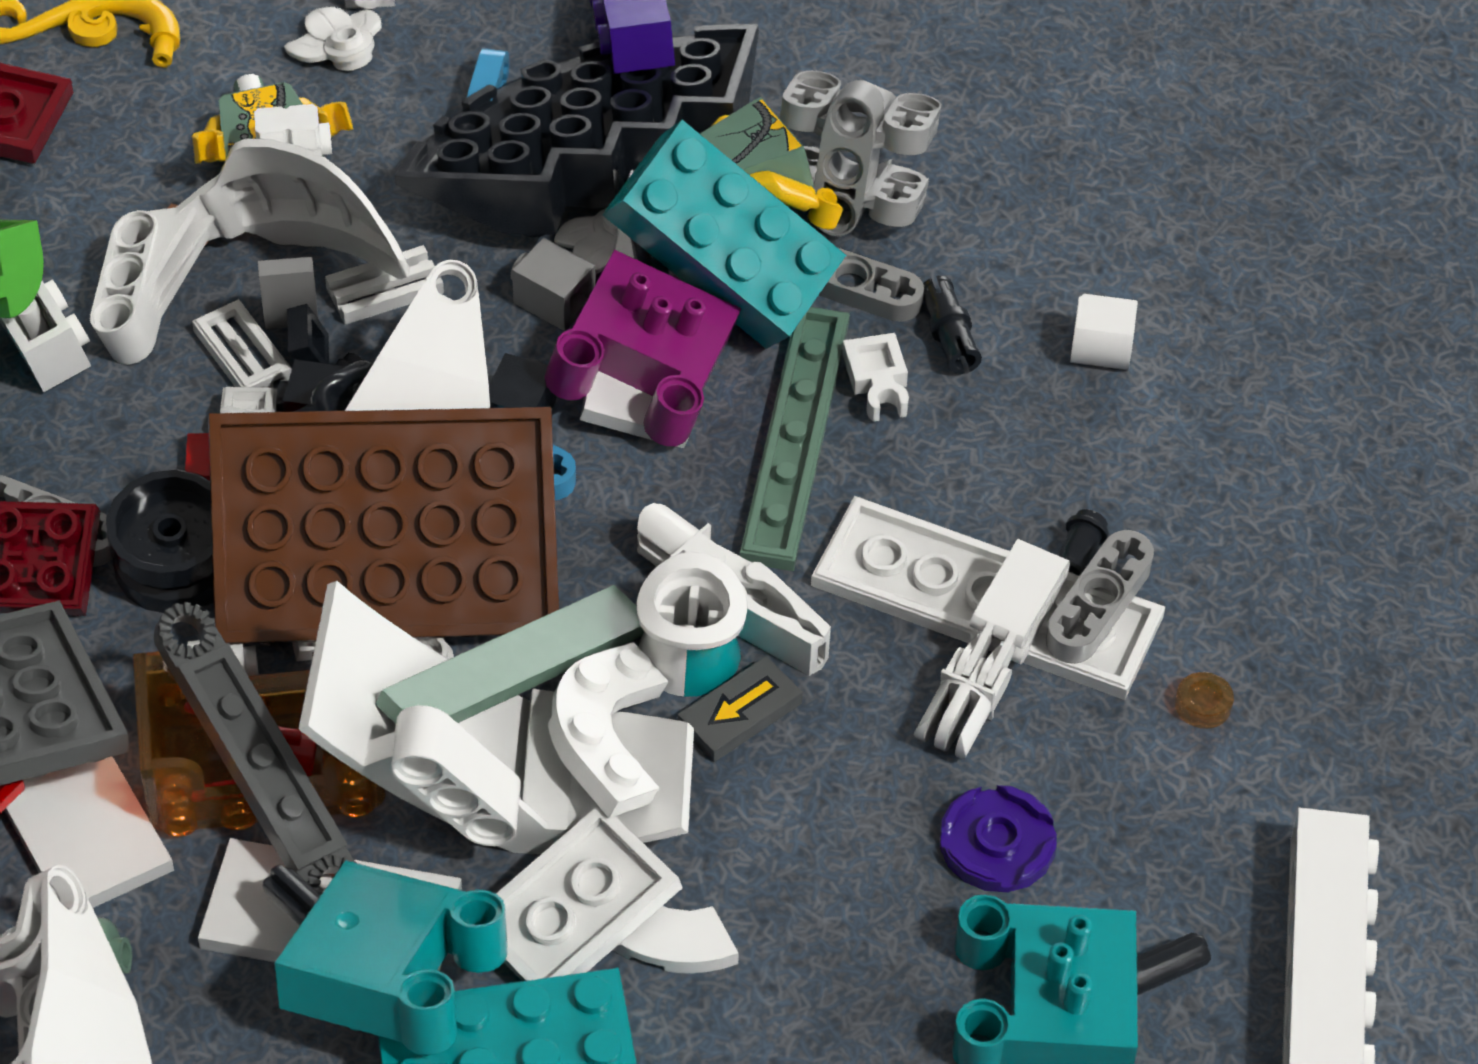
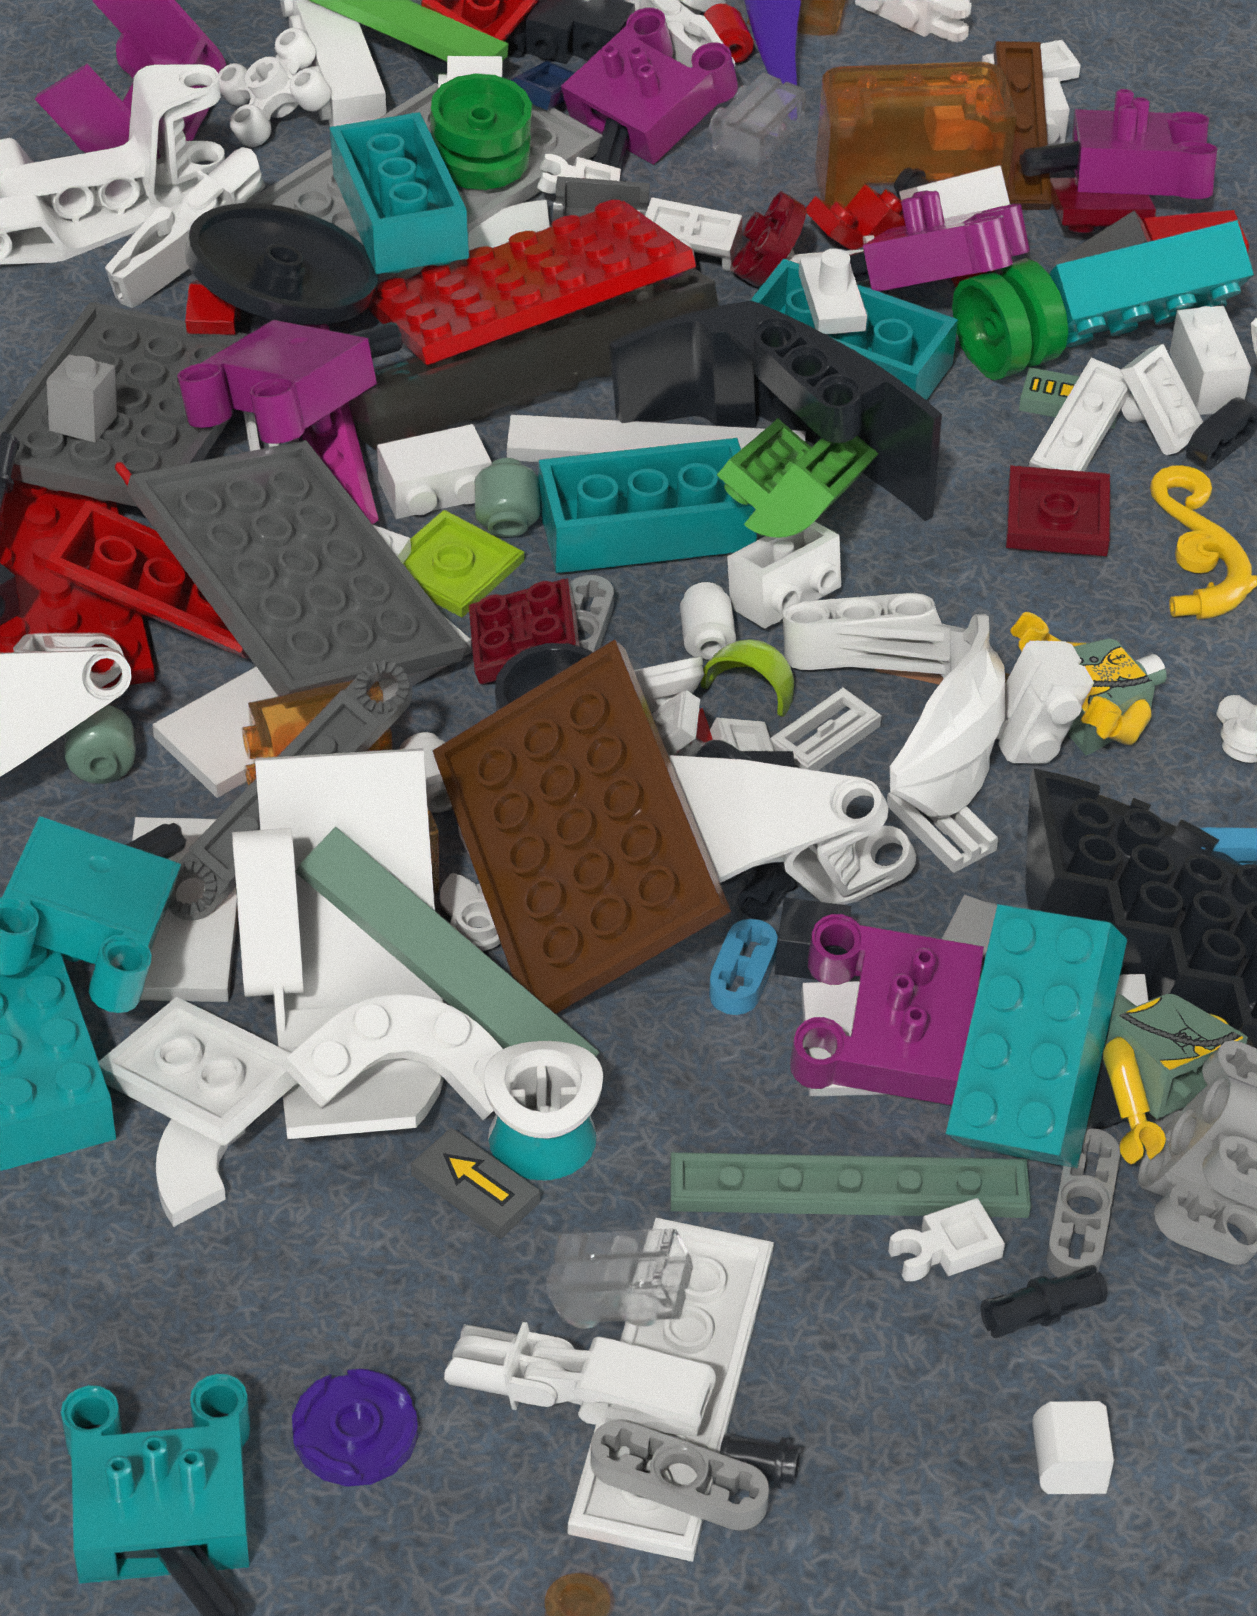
camera: 80 degrees right, 5 degrees down
(71, 406) = (706, 620): none -> white brick
(143, 378) = (761, 657): none -> lime helmet
(149, 443) = (667, 680): none -> white piece
(284, 286) = (869, 724): light grey slope -> none
(306, 335) = (836, 756): black tile -> none
(775, 614) = (616, 1146): white arm -> none
(894, 600) = (619, 1277): none -> clear brick

